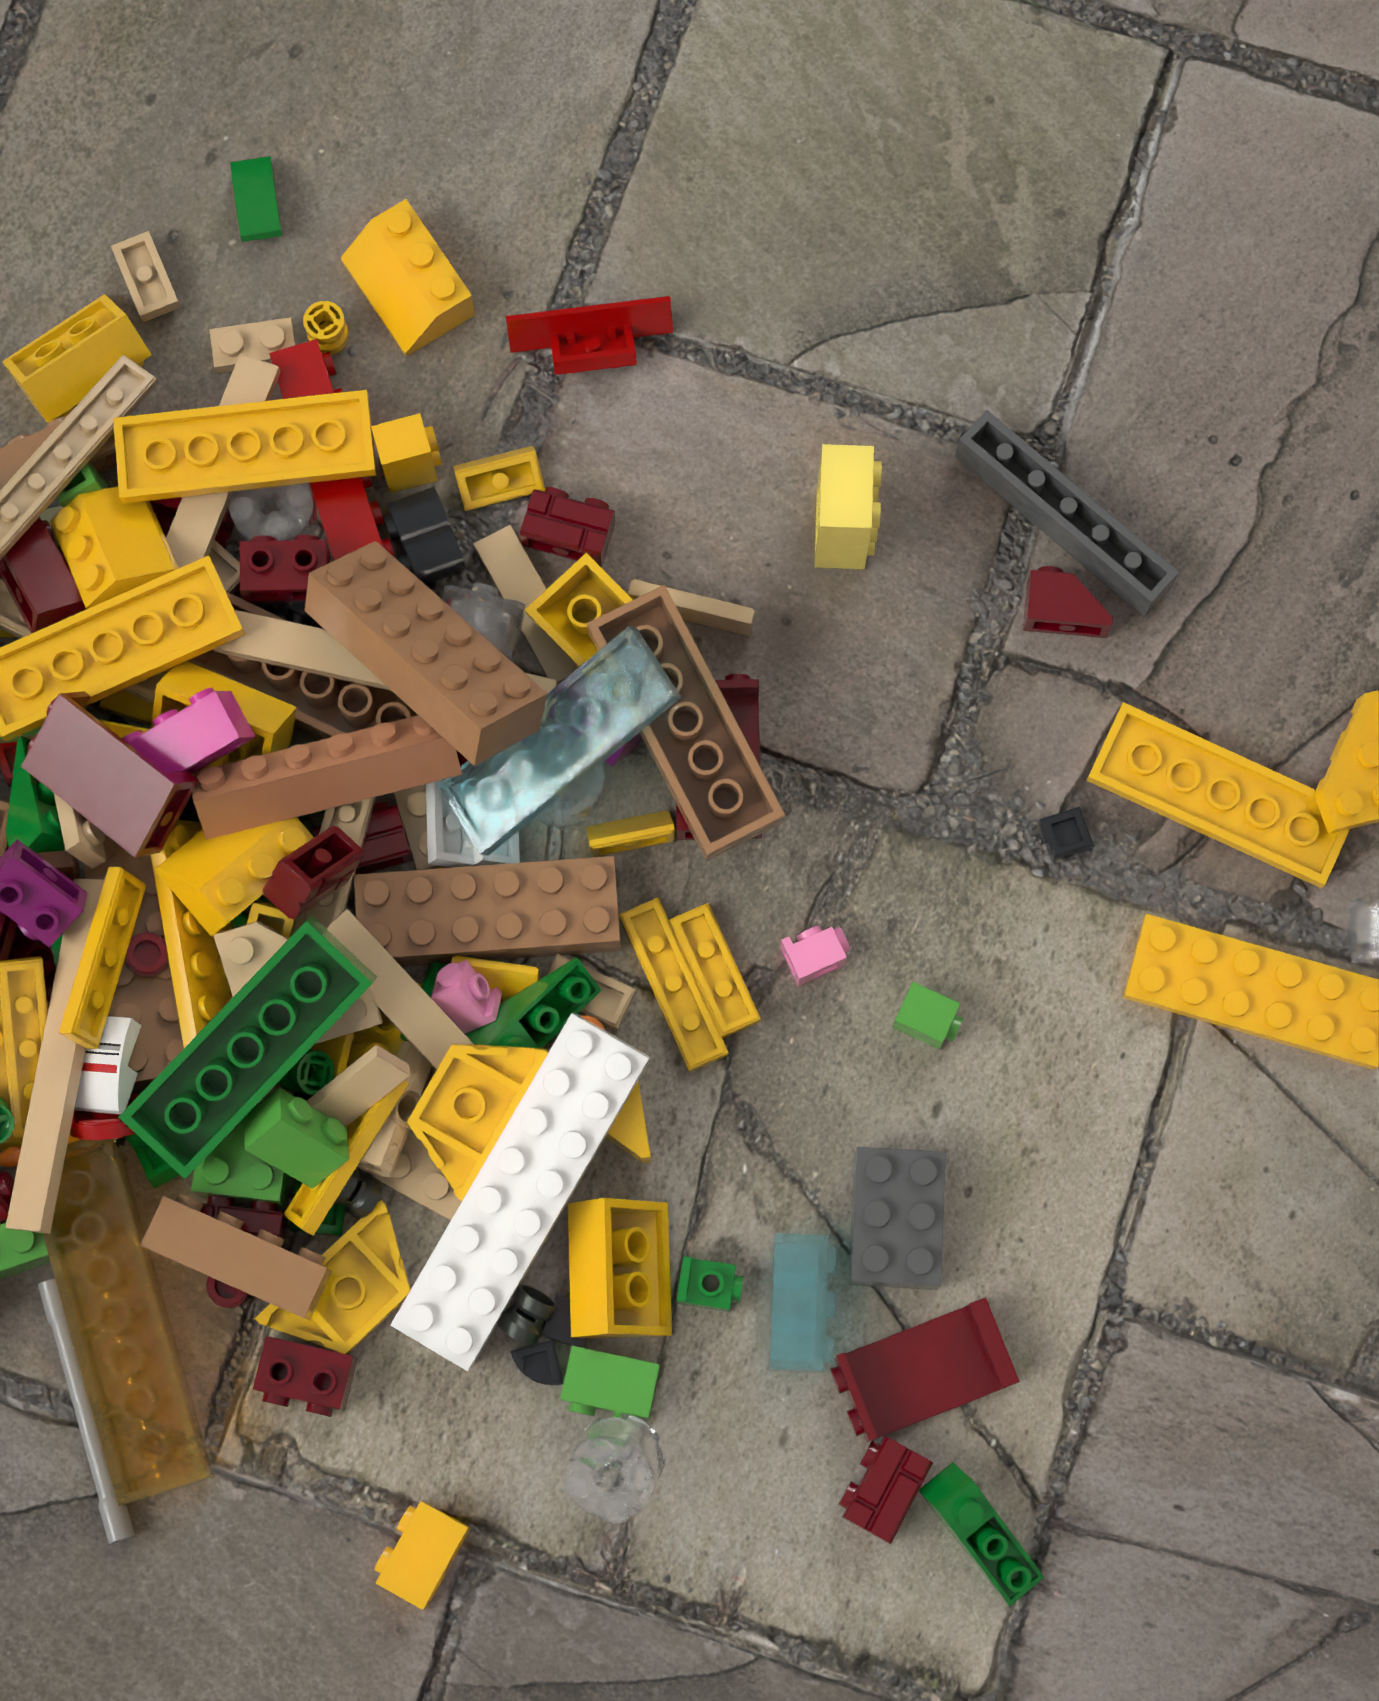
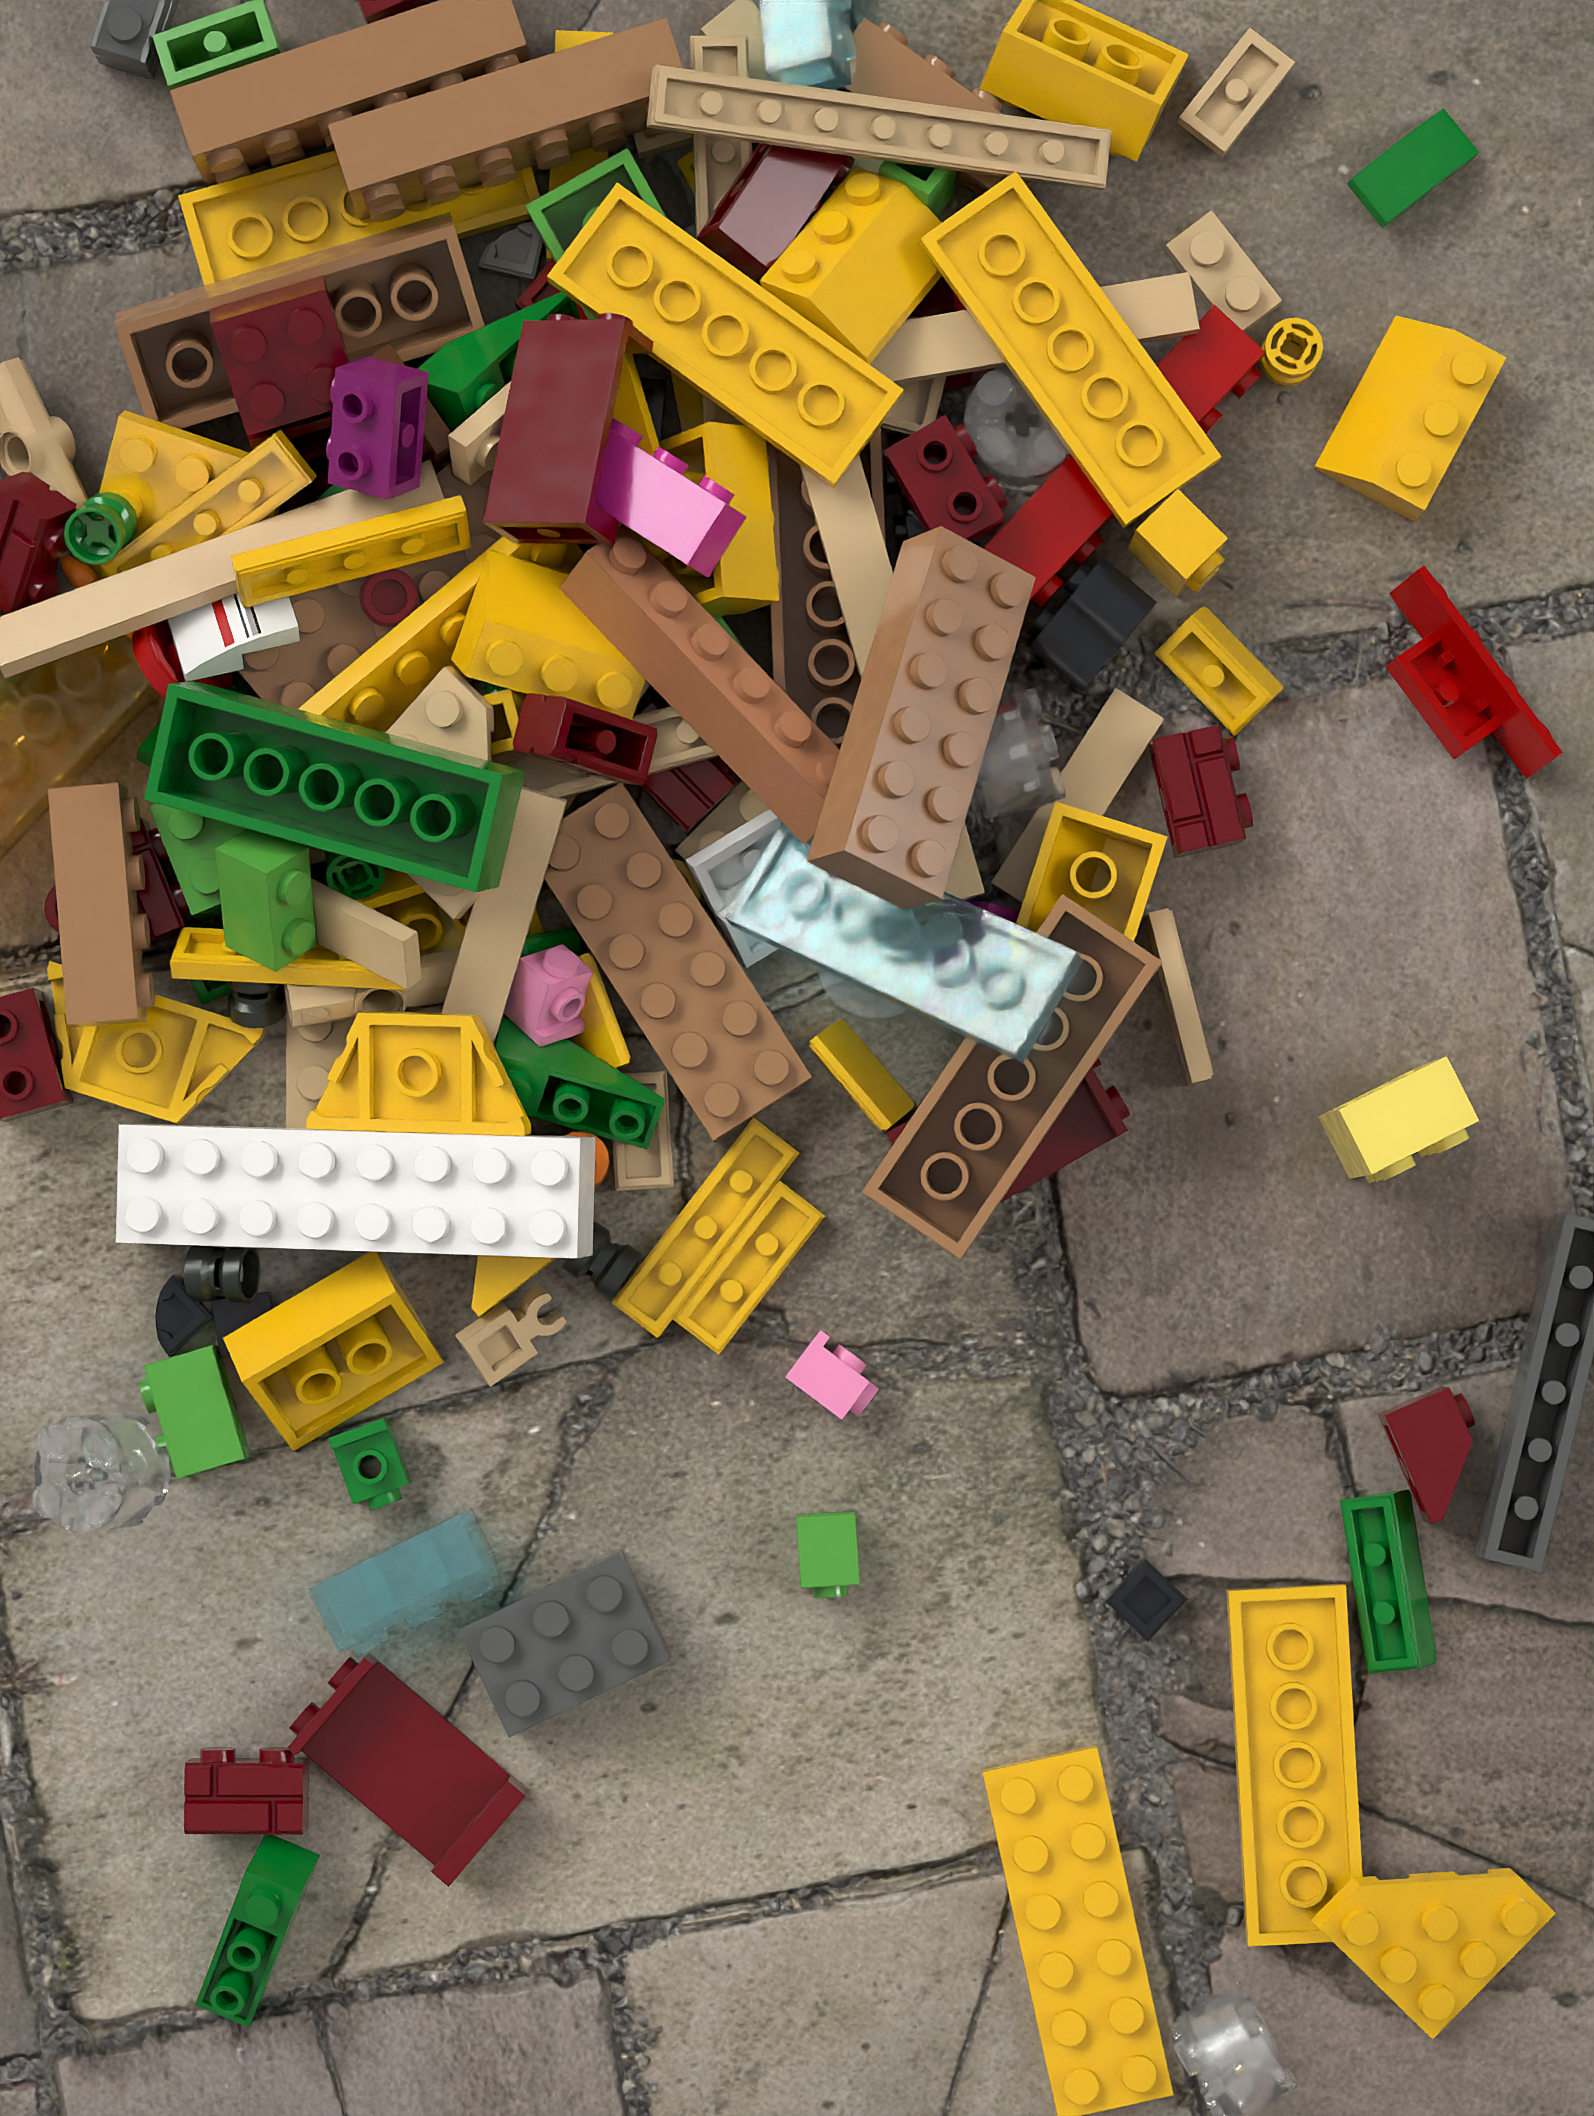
camera: 60 degrees right, 10 degrees up
(664, 1060) = (607, 1266): none -> pearl dark grey wheel
(673, 1153) = (501, 1339): none -> tan plate
(1134, 679) = (1388, 1581): none -> green slope

